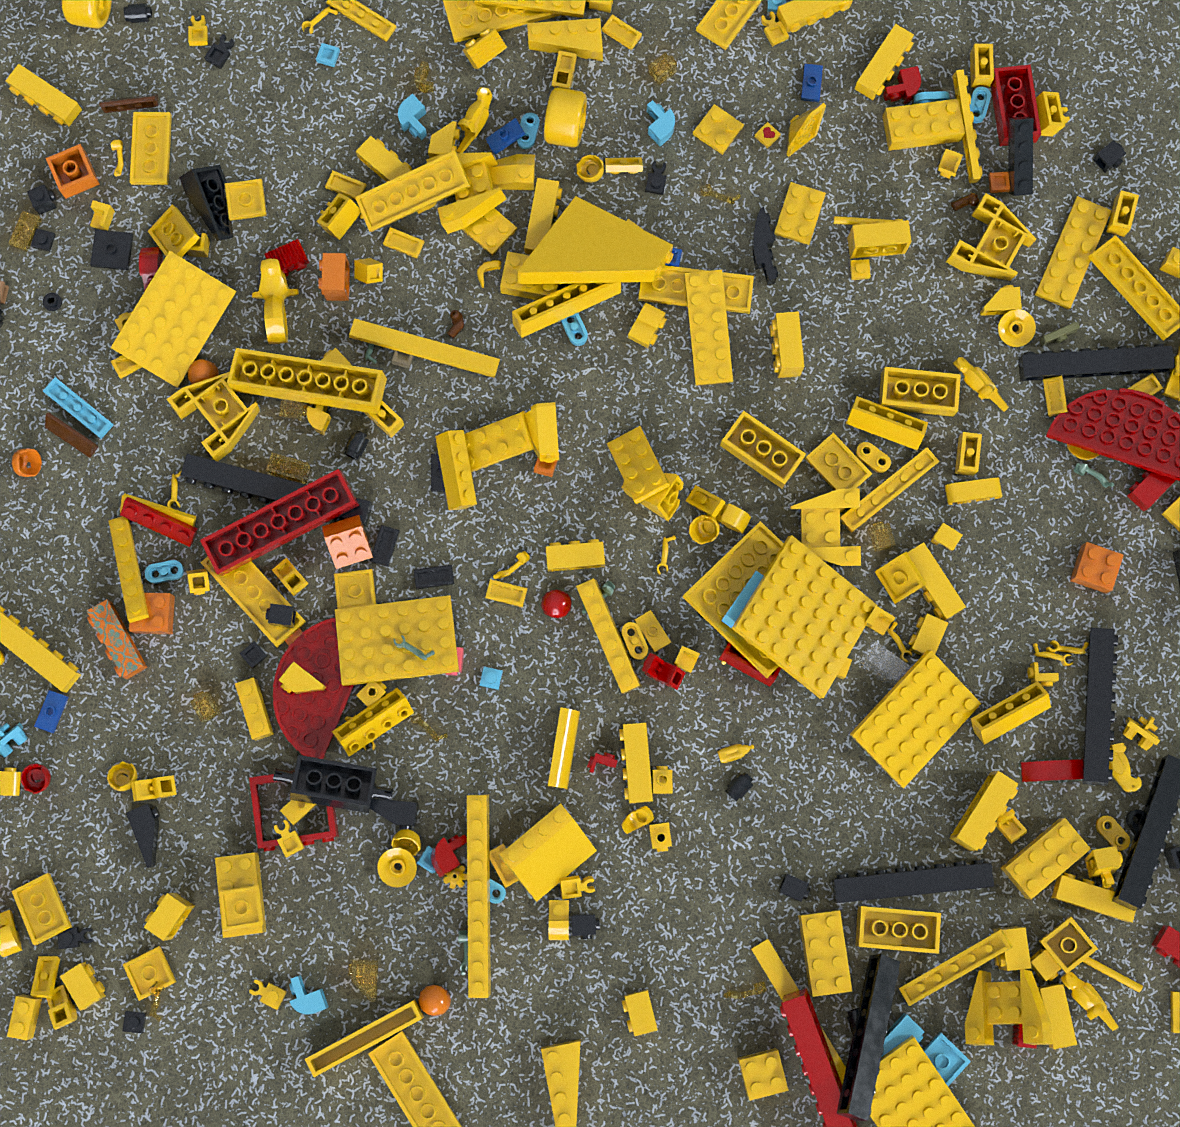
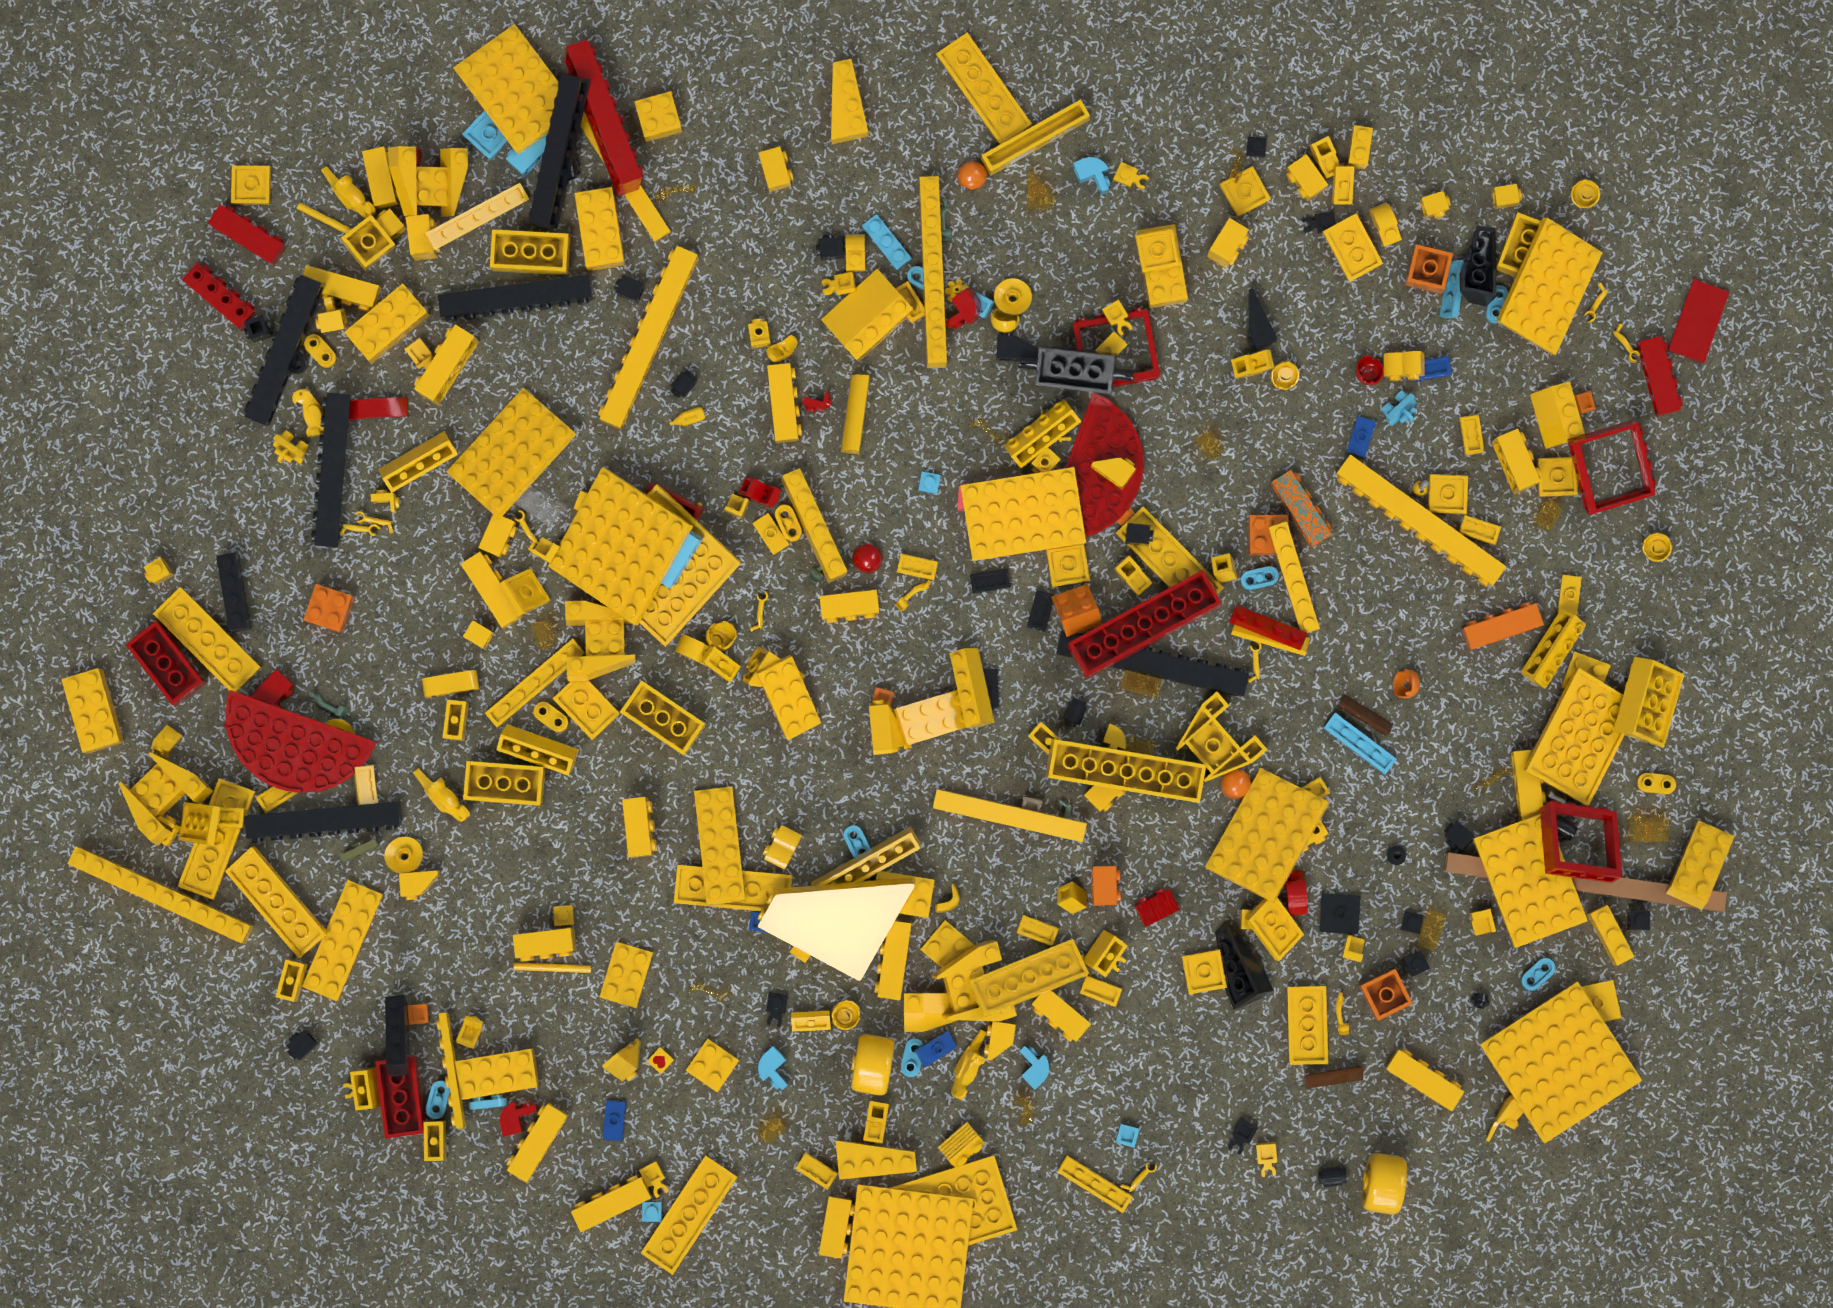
camera: 175 degrees left, 5 degrees up
(253, 654) = (1165, 498): black plate -> none
(254, 709) = (1160, 444): yellow brick -> none
(274, 291) = (1166, 870): yellow animal -> none
(414, 650) = (1003, 501): sand green piece -> none
(457, 322) = (977, 844): reddish brown arm -> none
(526, 930) = (886, 242): none -> medium azure plate
(662, 780) = (758, 386): yellow brick -> none
(762, 240) = (666, 943): black slope -> none
(774, 835) = (648, 338): none -> yellow brick
(971, 199) = (453, 993): reddish brown arm -> none
(996, 246) = (421, 944): yellow wedge -> none

